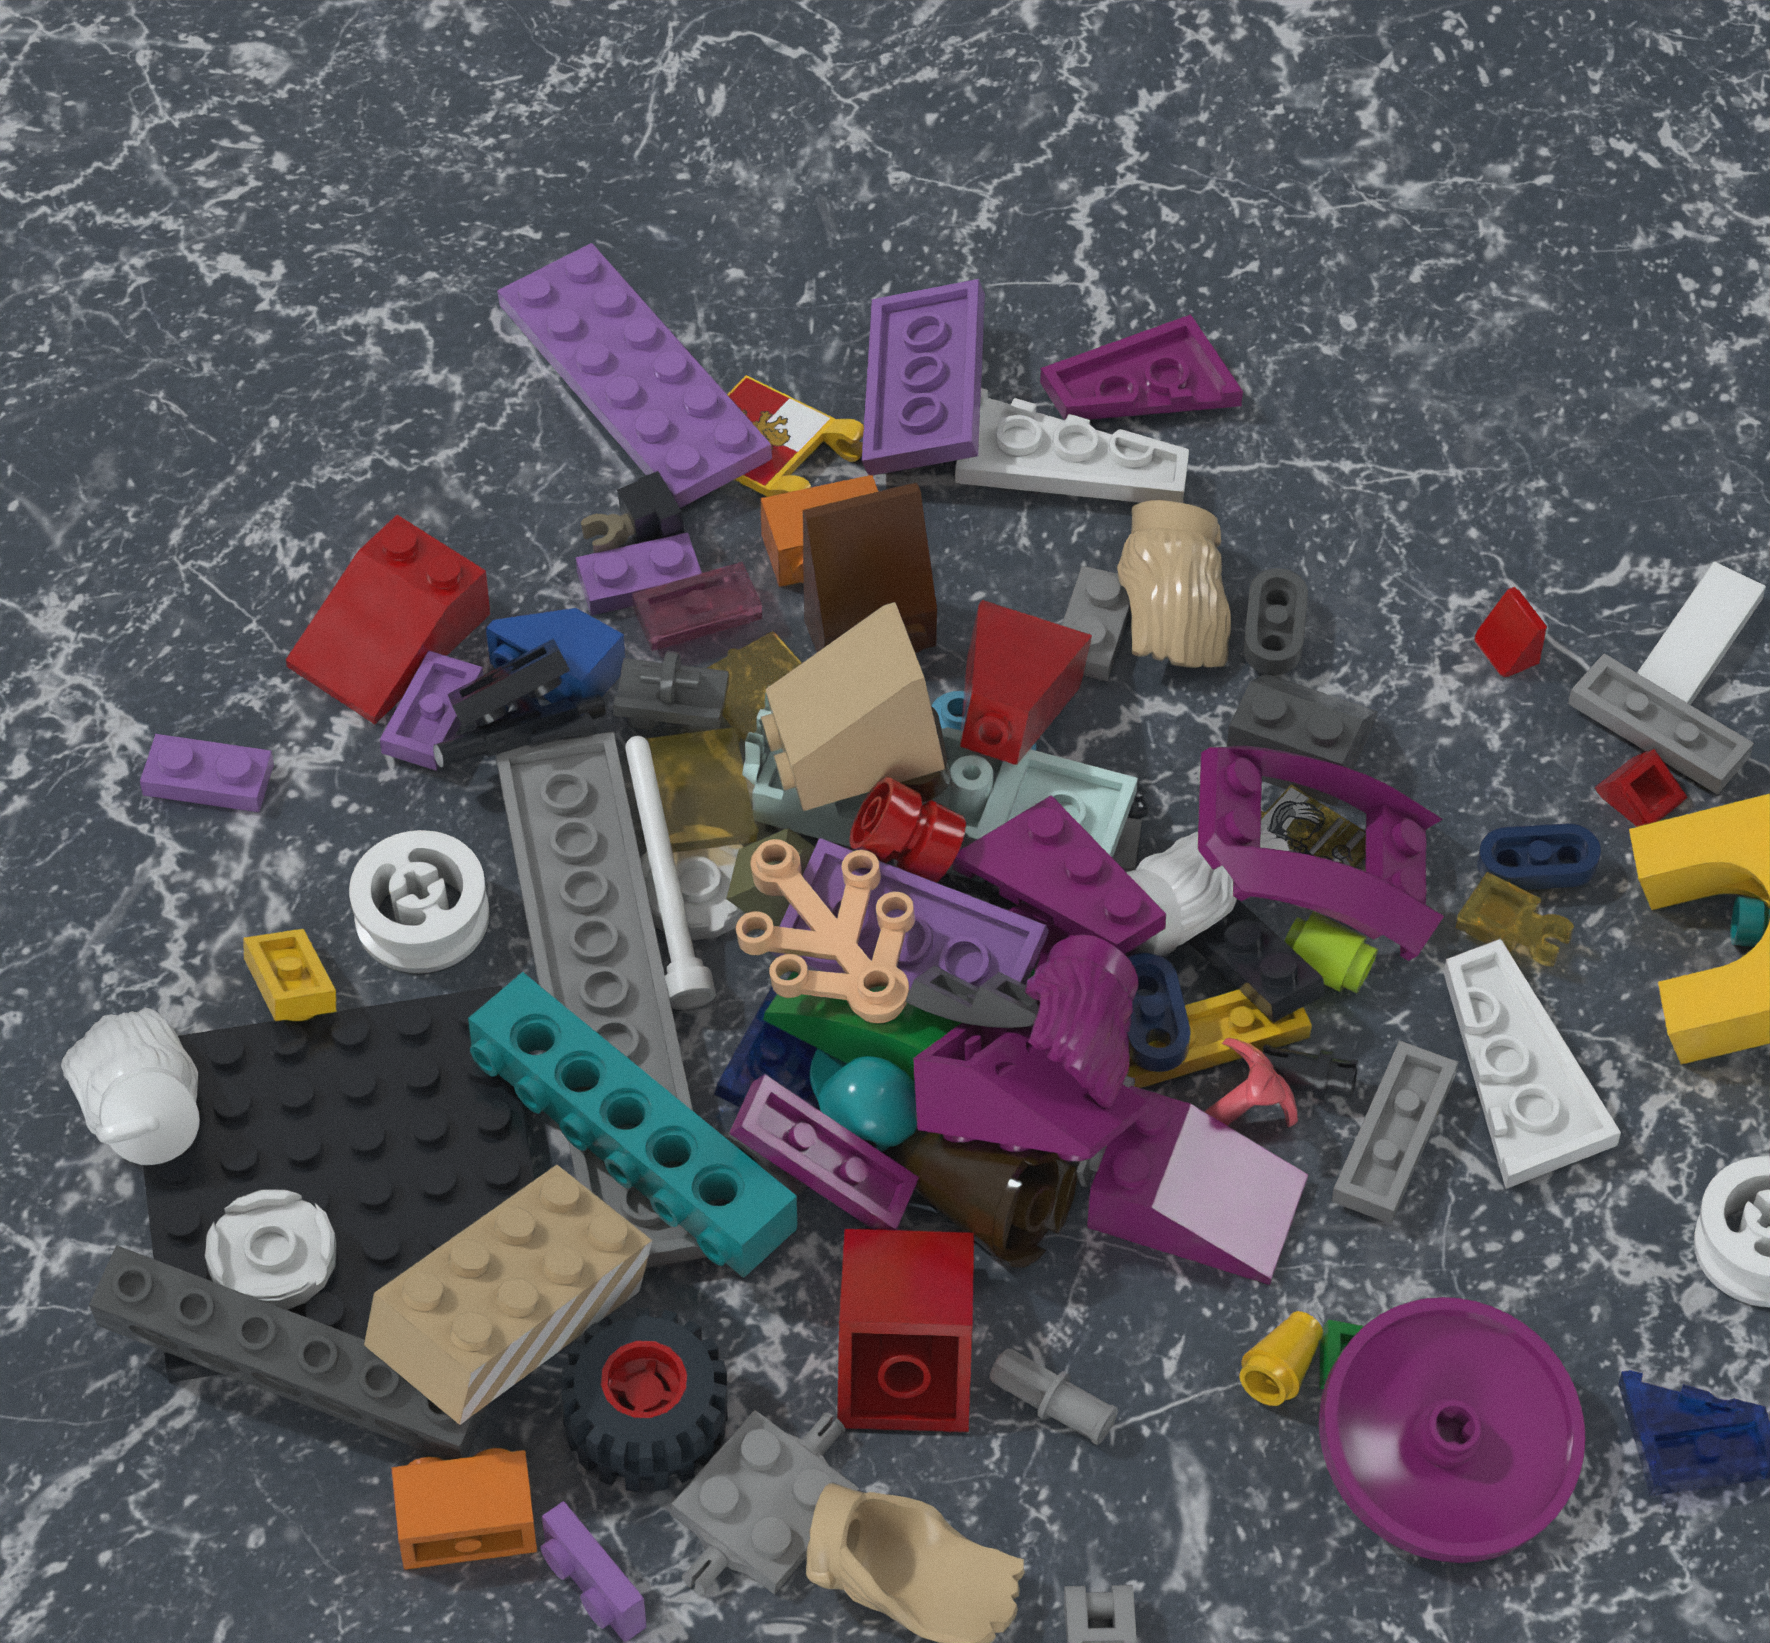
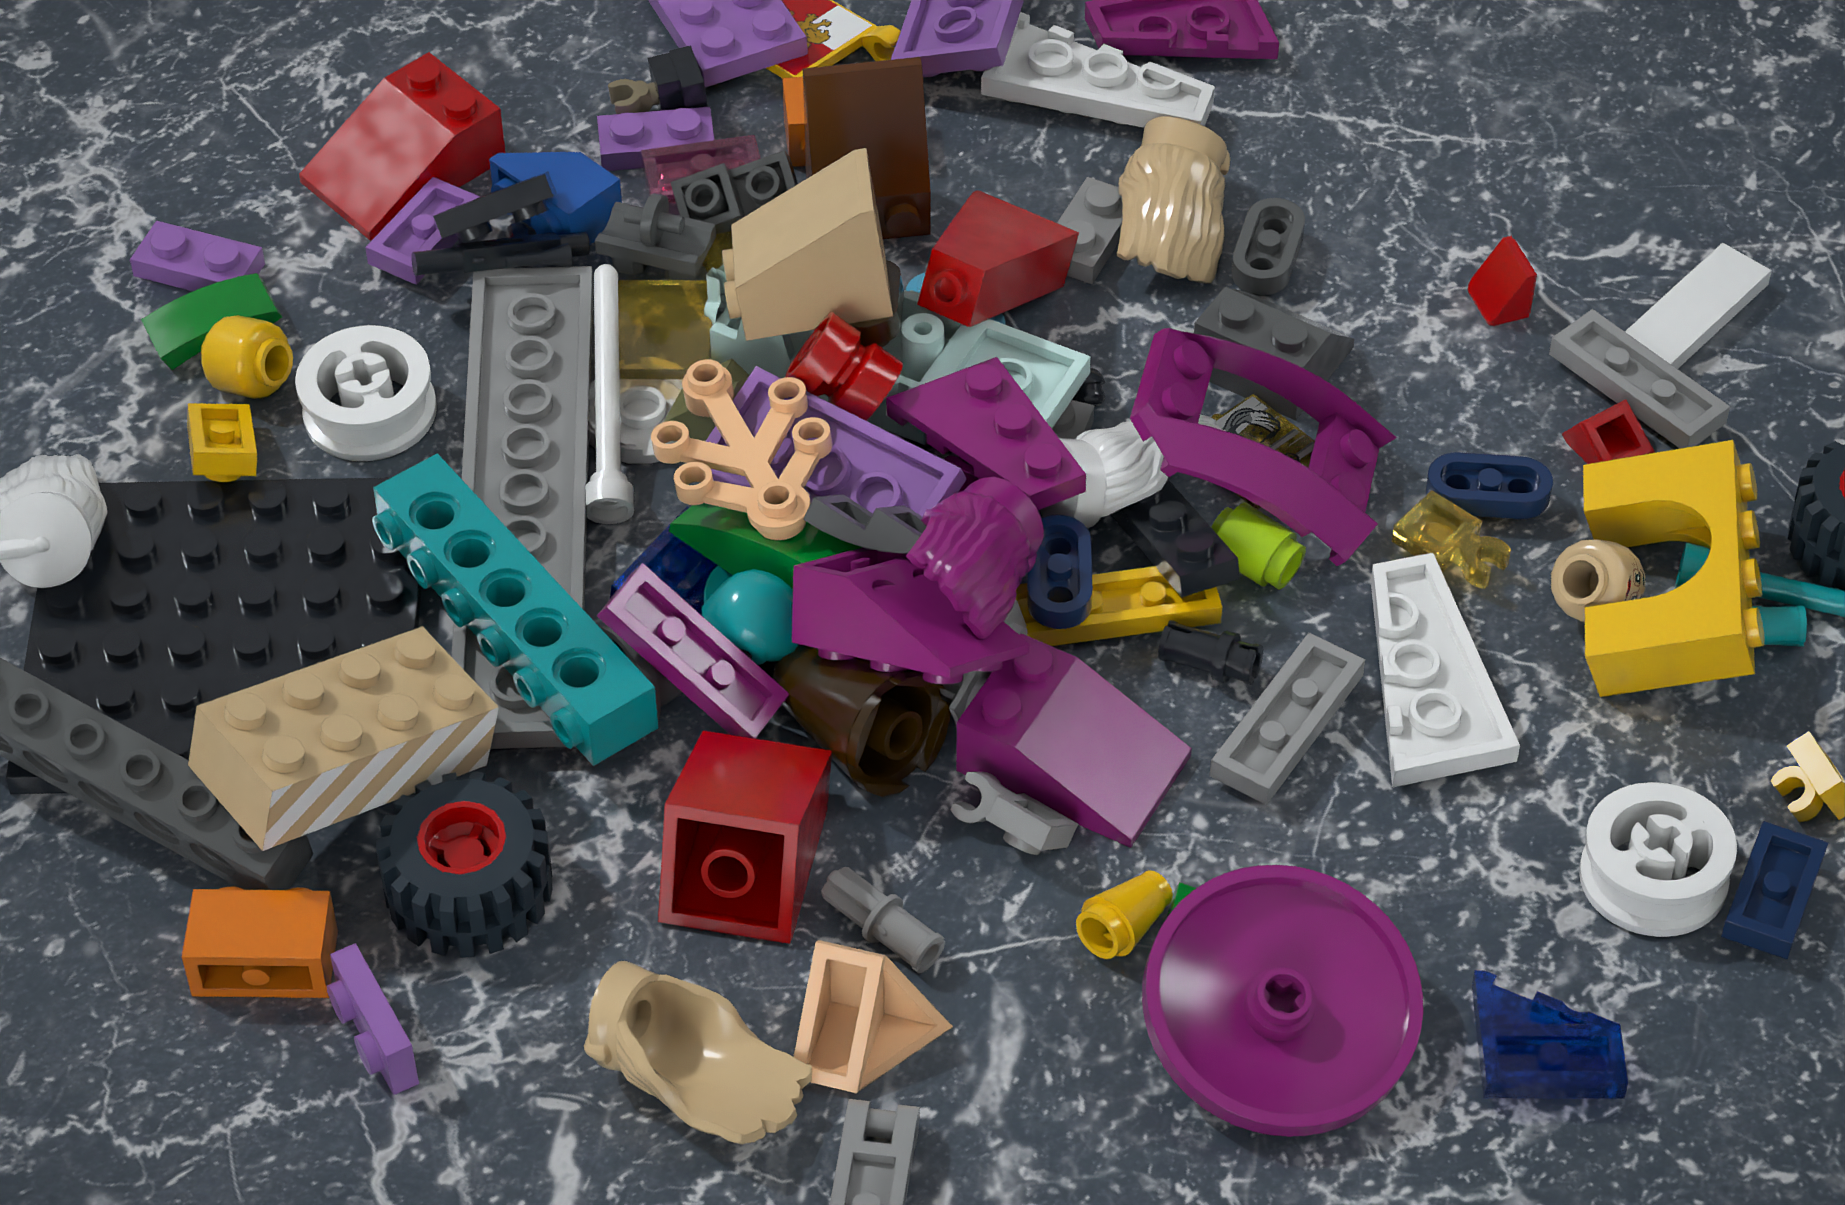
camera: 10 degrees right, 5 degrees down
(230, 839) = (183, 324): none -> green slope
(272, 1248) = (136, 676): white tile -> none
(289, 877) = (246, 357): none -> yellow head
(743, 633) = (728, 195): none -> dark grey slope
(758, 1501) = (548, 975): light grey plate -> none
(1058, 1504) = (861, 1017): none -> light nougat slope
(1169, 1275) = (1027, 822): none -> light grey plate
(1261, 1088) = (1151, 651): coral plant -> none
(1662, 947) = (1595, 575): none -> tan head

